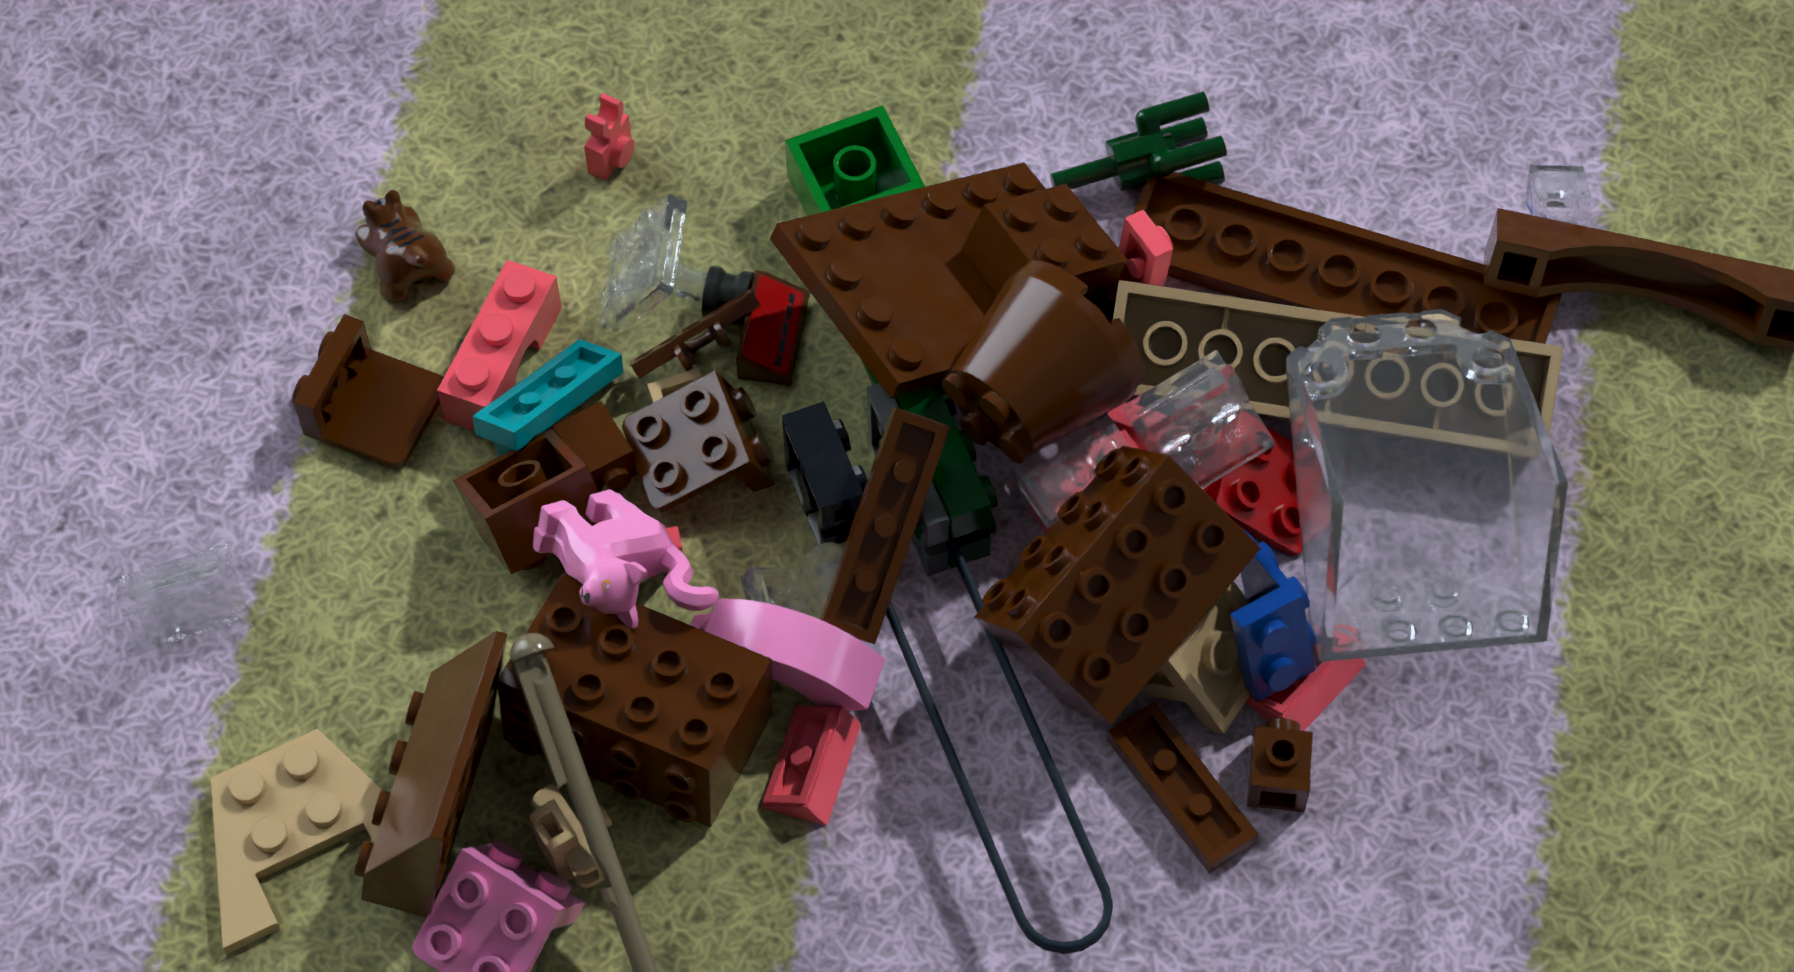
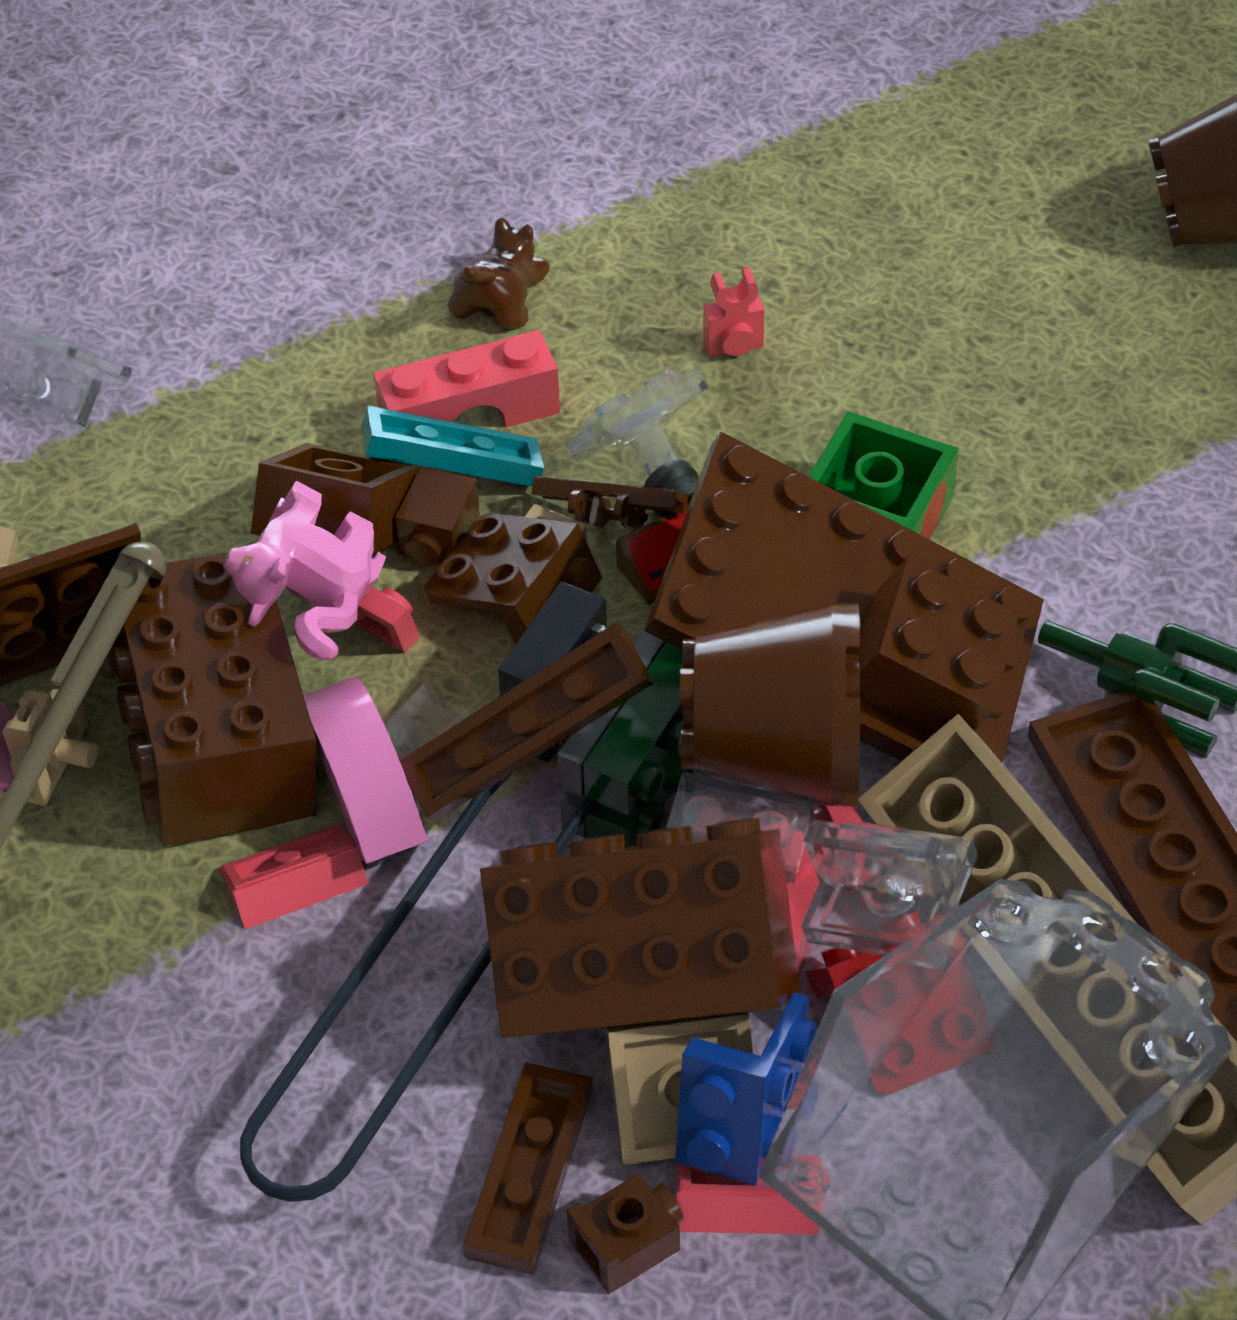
camera: 50 degrees right, 10 degrees down
(365, 398) = (333, 343): reddish brown bracket -> none
(1146, 249) = (1032, 727): coral plate -> none

